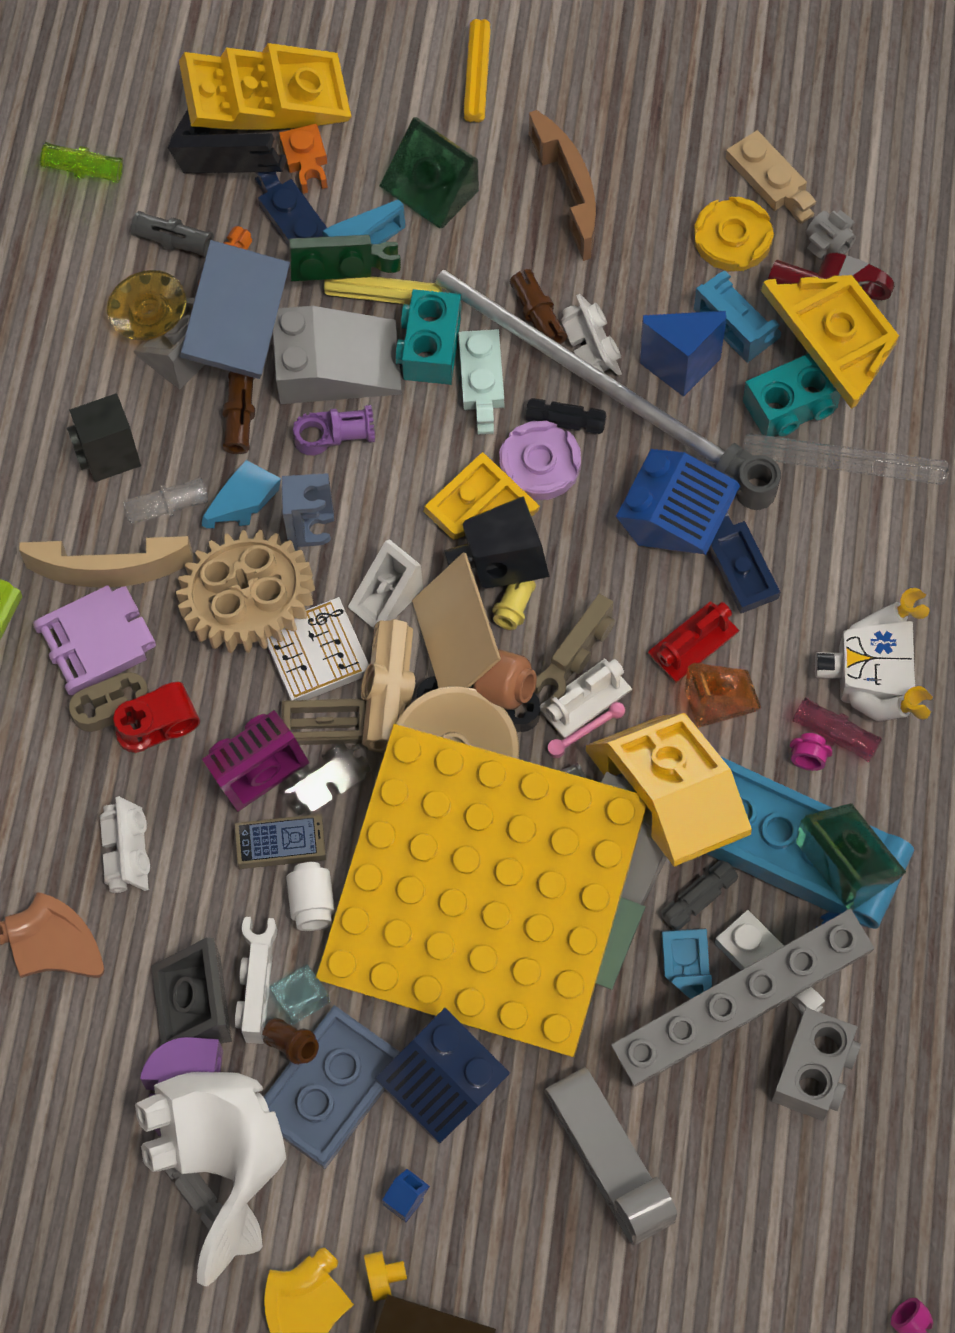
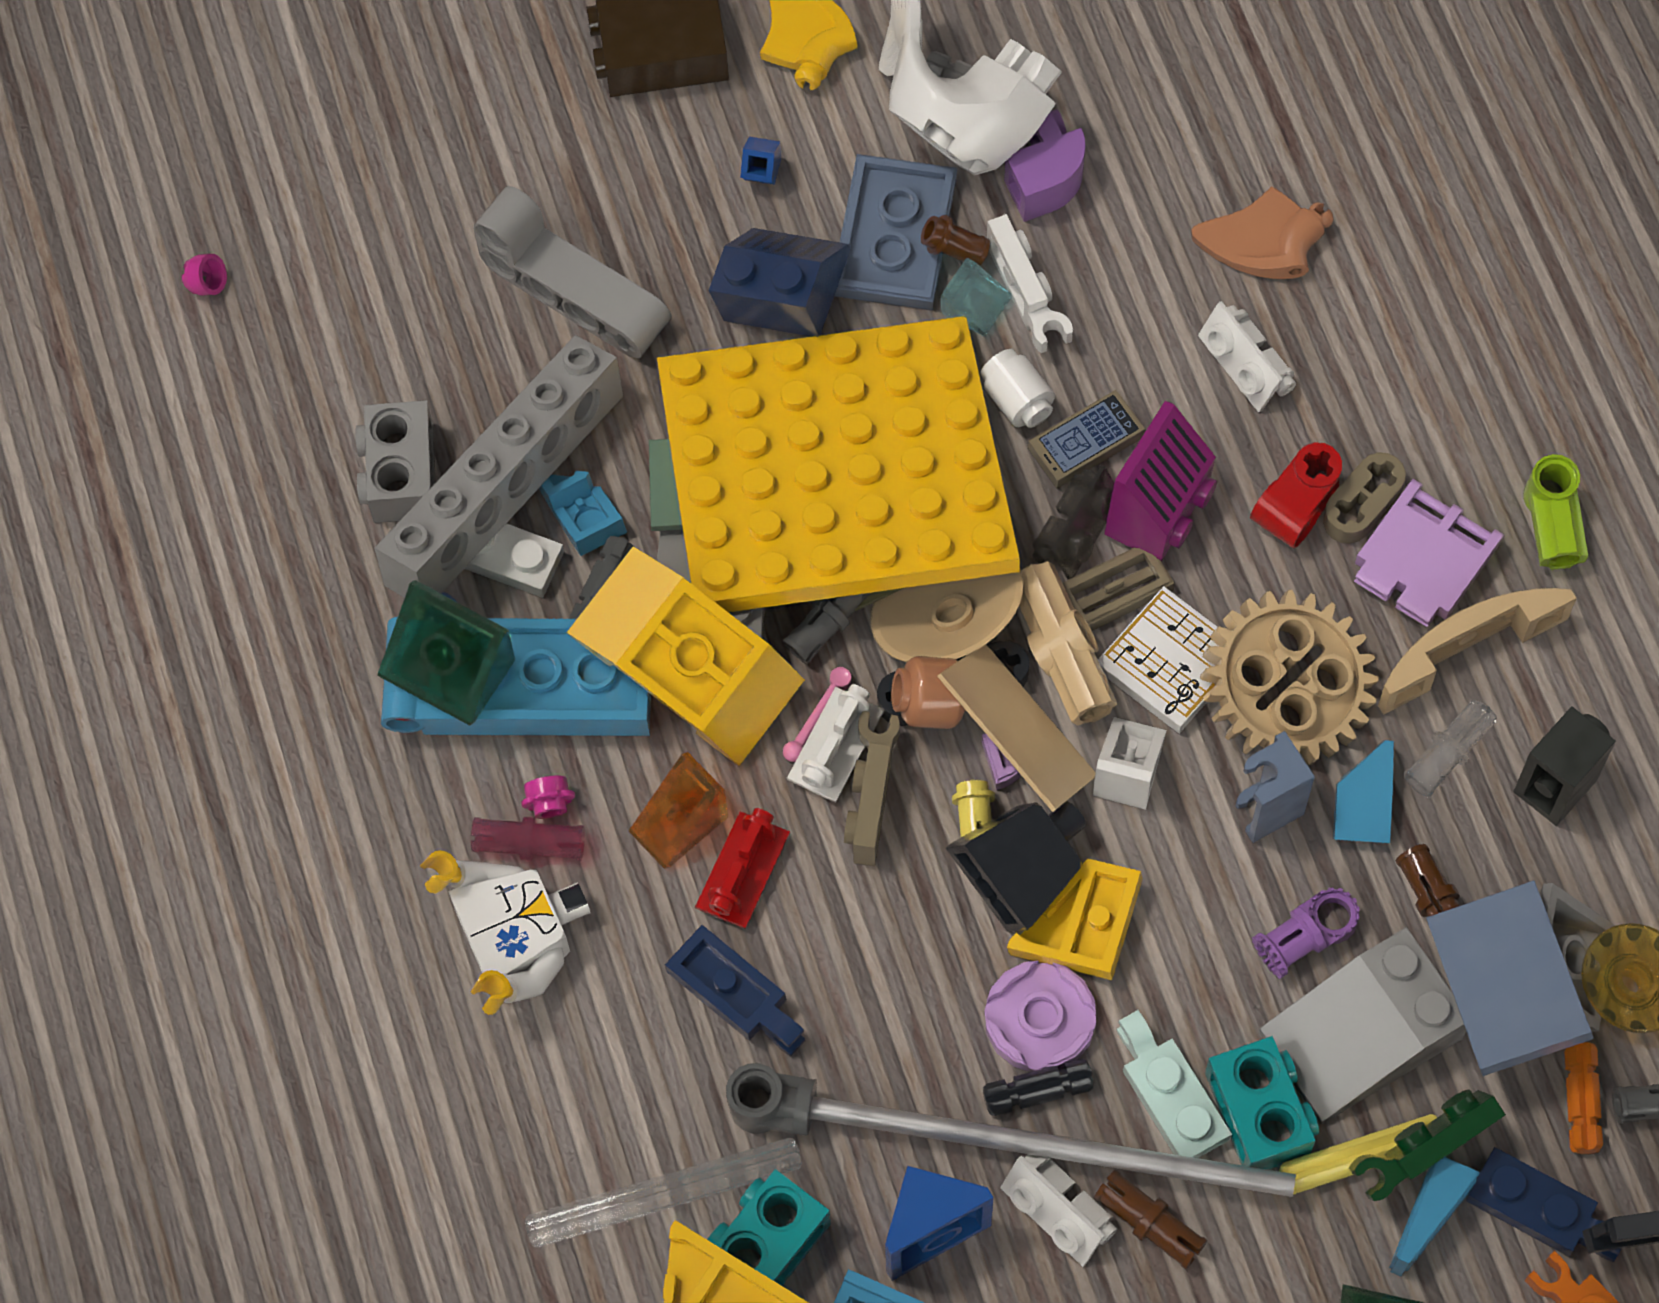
camera: 155 degrees right, 0 degrees up
(192, 994) = (1077, 242): dark grey slope -> none
(381, 1274) = (745, 83): yellow tile -> none
(676, 502) = (837, 1007): blue slope -> none

